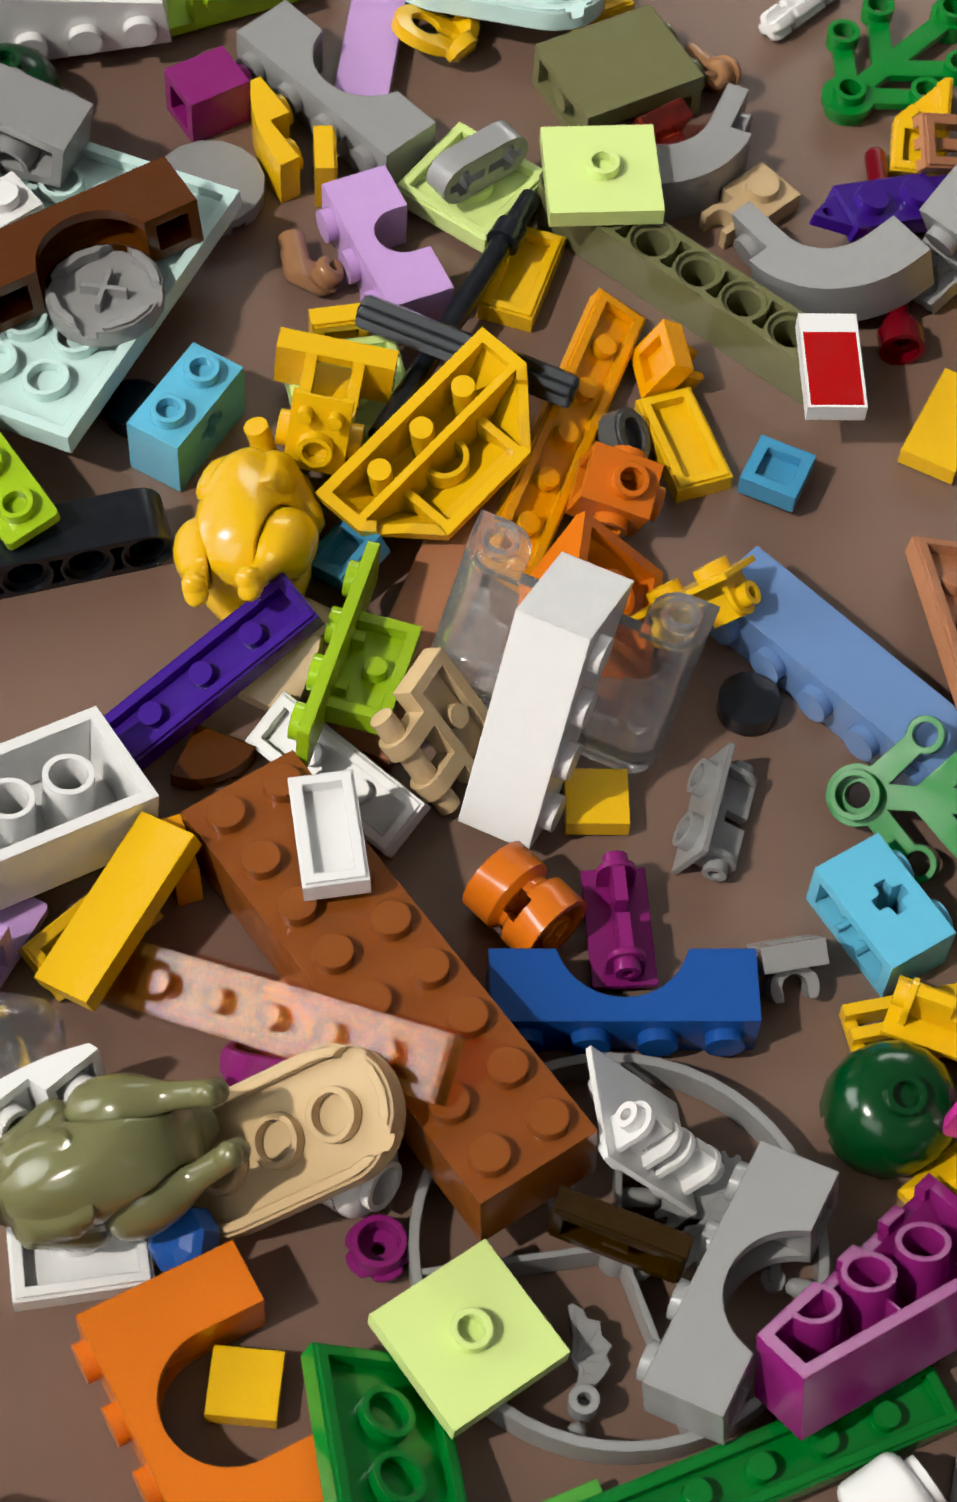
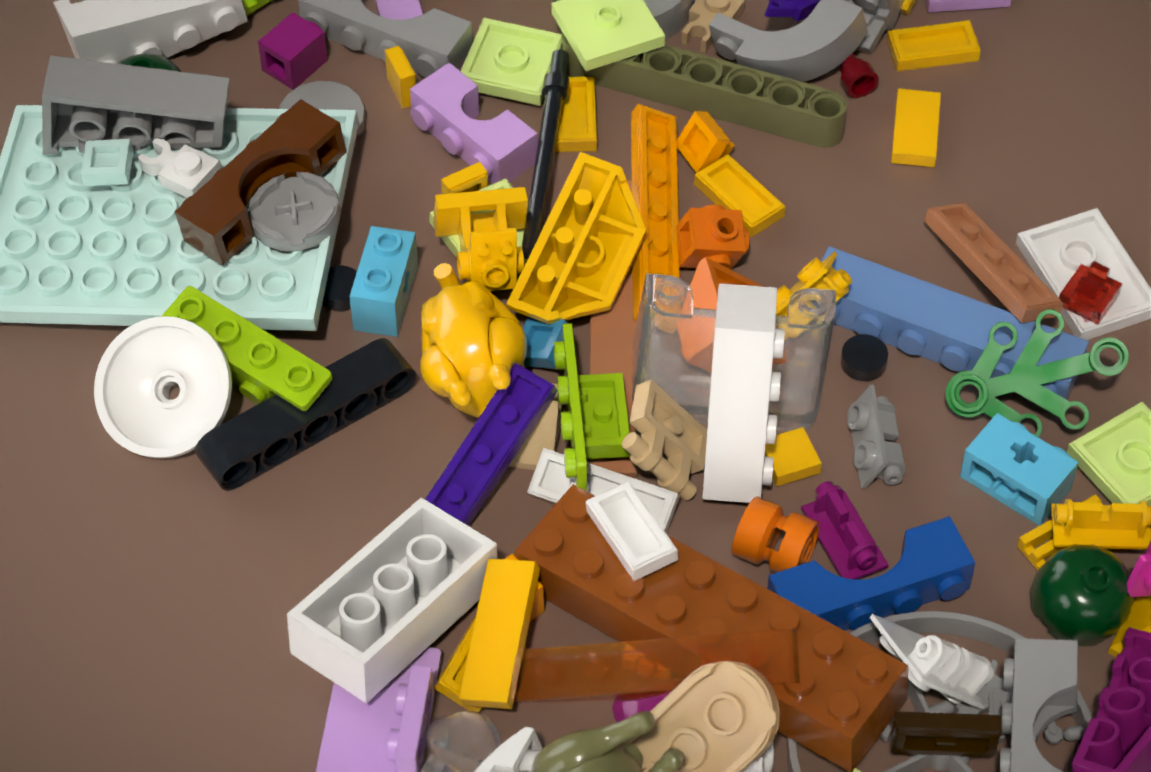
camera: 15 degrees left, 5 degrees down
(211, 759) = (508, 513): reddish brown tile -> none
(272, 141) = (348, 64): yellow slope -> none
(313, 276) = (413, 155): medium nougat arm -> none
(444, 340) = (555, 172): black axle -> none
(477, 162) = (514, 41): light grey beam -> none
(624, 428) = (695, 195): dark grey tile -> none
(776, 473) = (815, 195): dark azure plate -> none
(787, 957) = (975, 516): light grey tile -> none
(831, 366) = (826, 109): tile -> none

